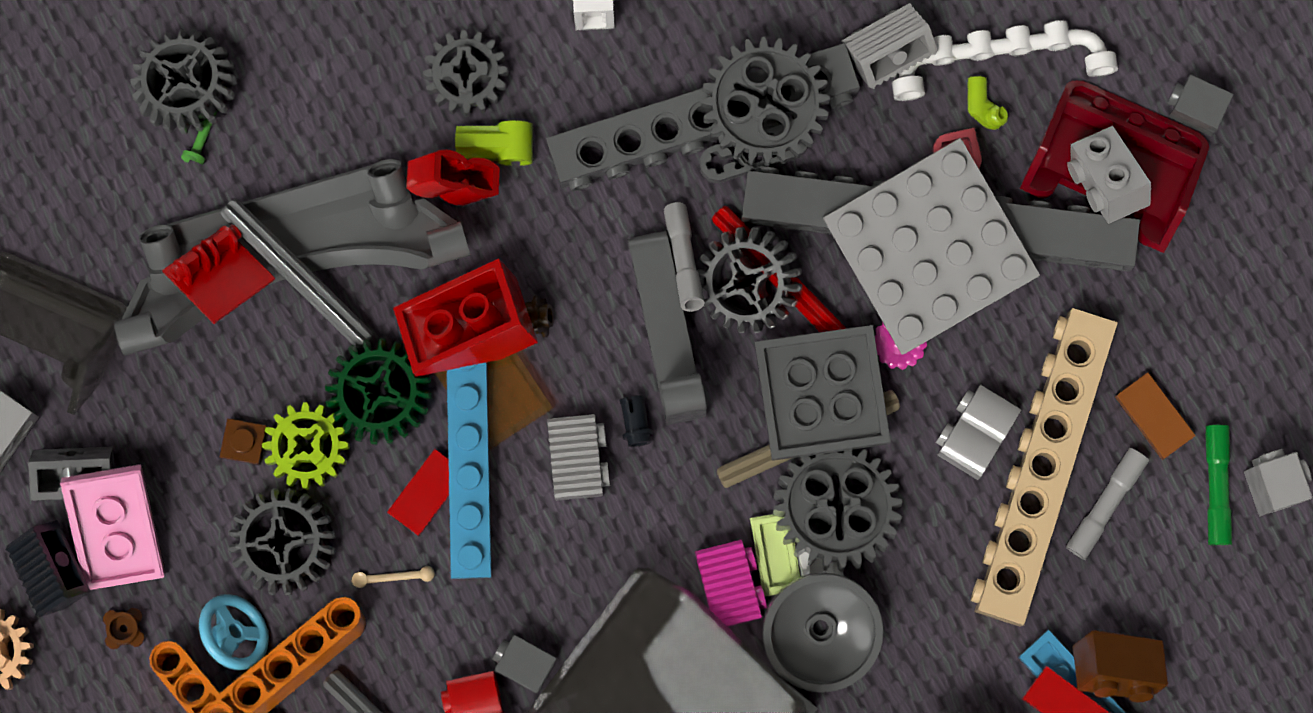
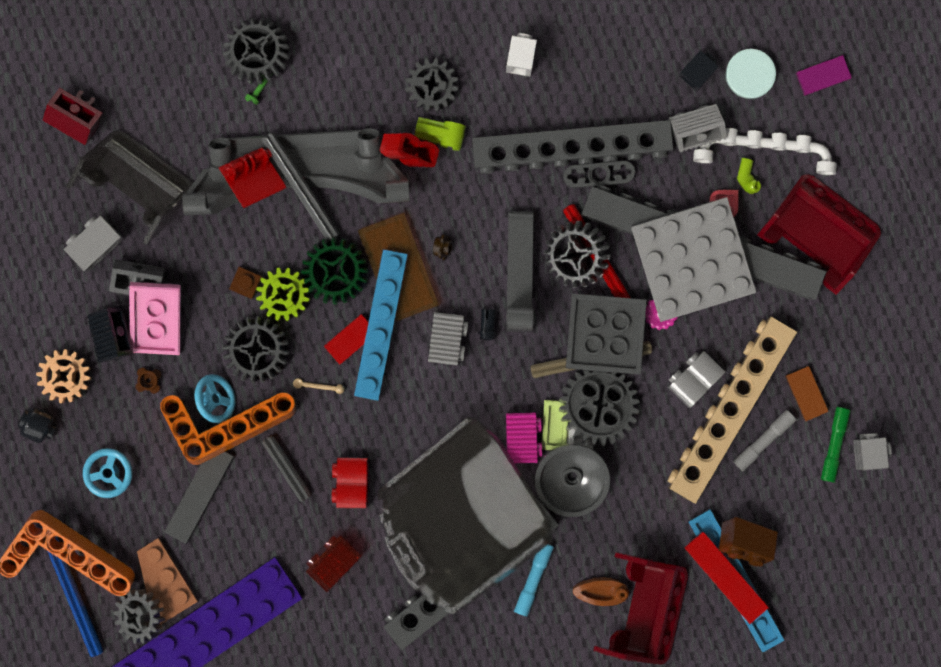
camera: 10 degrees right, 5 degrees up
(466, 321) = (397, 241): red slope -> none
(524, 663) = (386, 457): dark grey brick -> none
(687, 276) = (539, 245): light grey piece -> none
(747, 132) = (597, 163): dark grey gear -> none
(1109, 175) = (813, 239): light grey brick -> none
(1199, 104) = (880, 207): dark grey brick -> none

